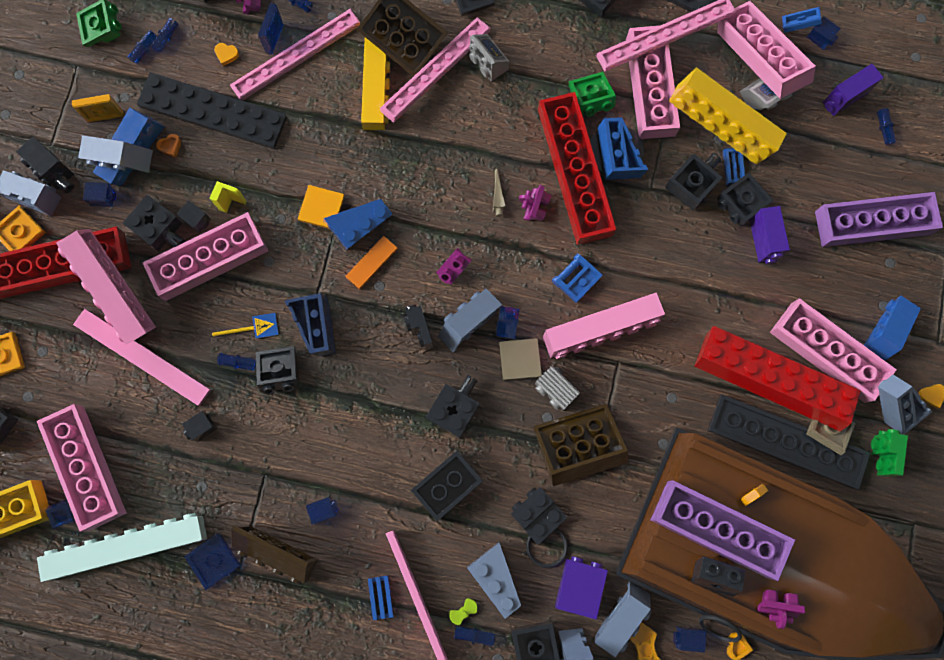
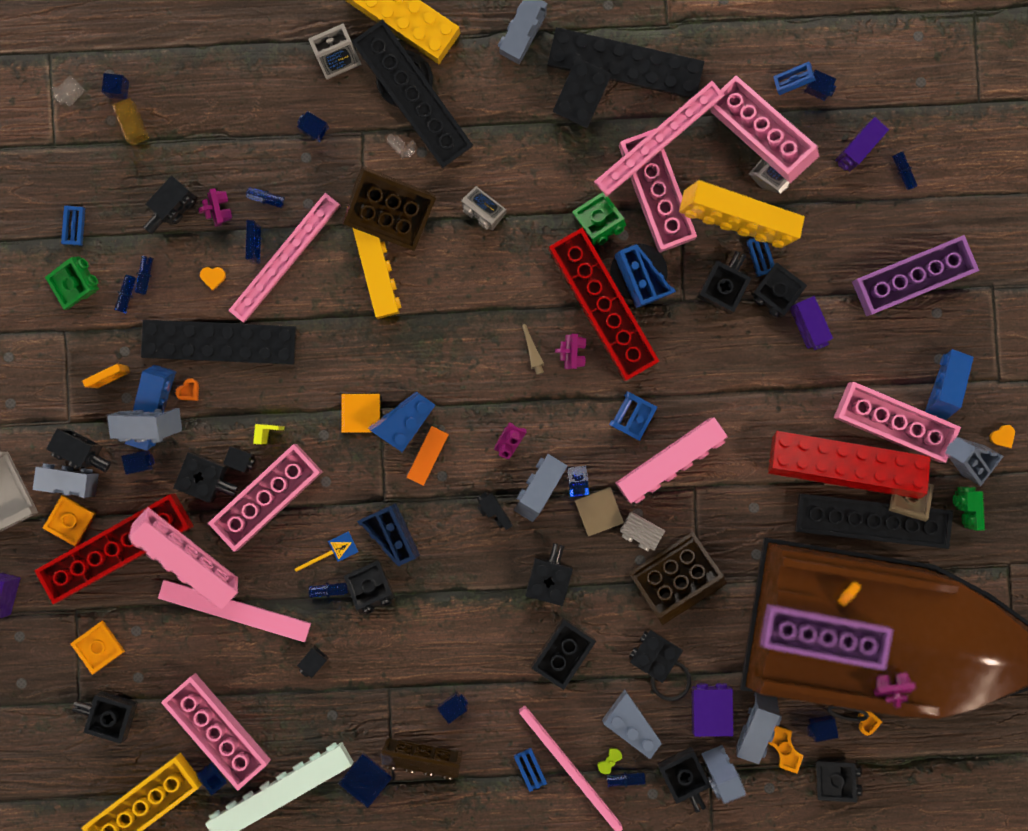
camera: 15 degrees left, 10 degrees up
(433, 71) = (433, 237): bright pink tile -> none
(718, 576) = (832, 677): black brick -> none

